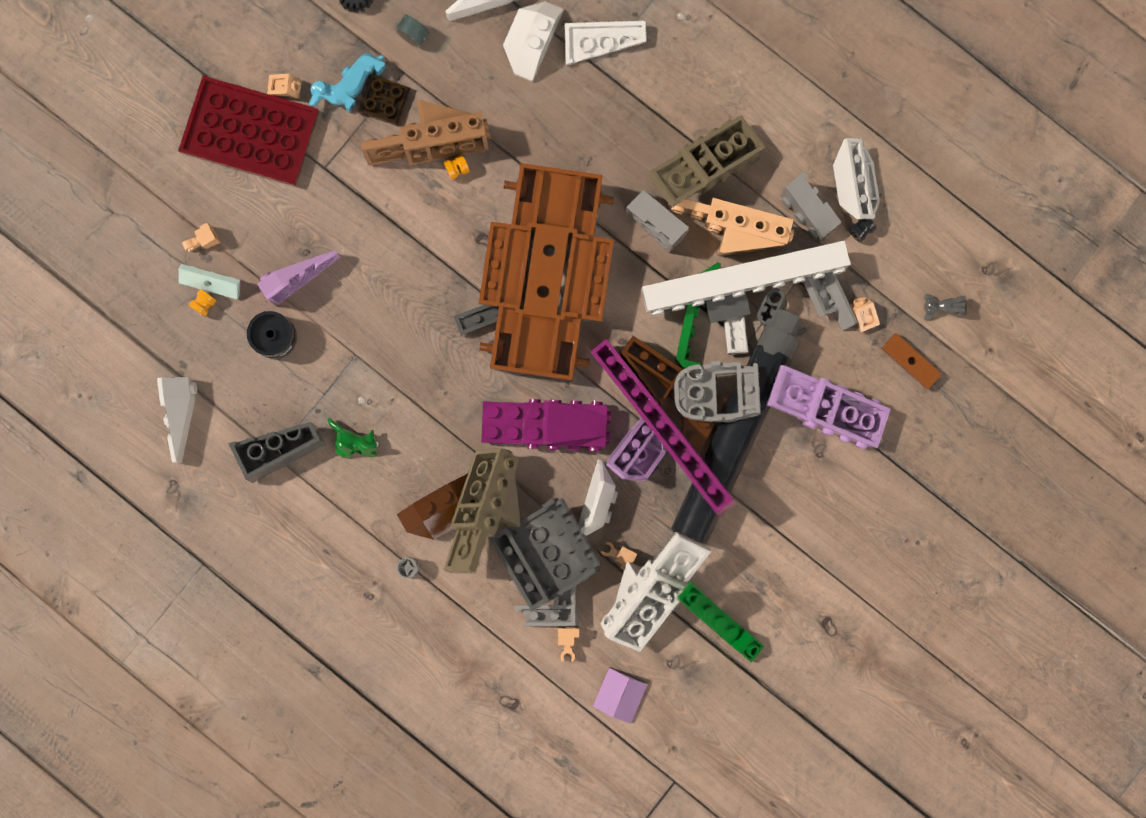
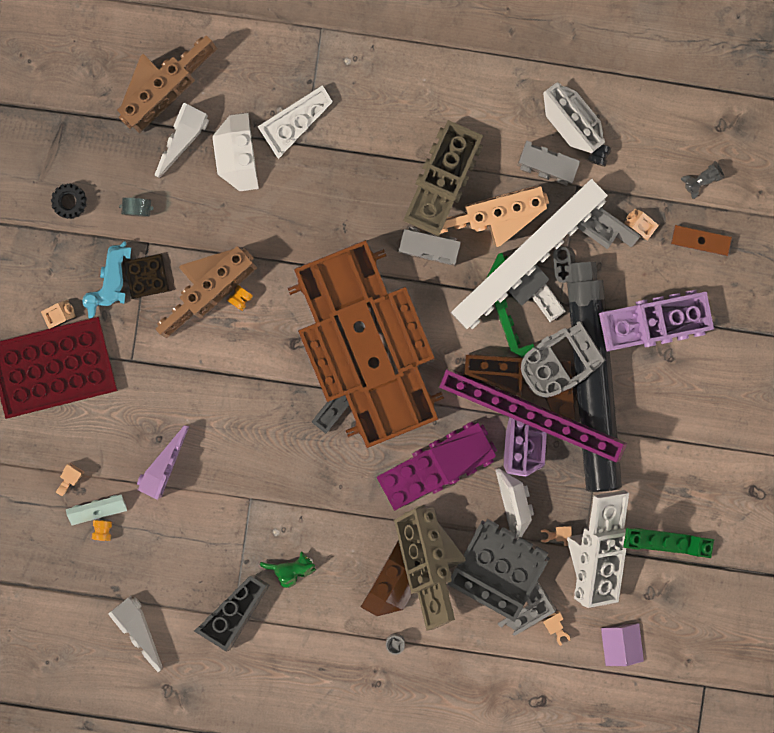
camera: 35 degrees left, 5 degrees up
(260, 339) = (174, 512): black wheel -> none

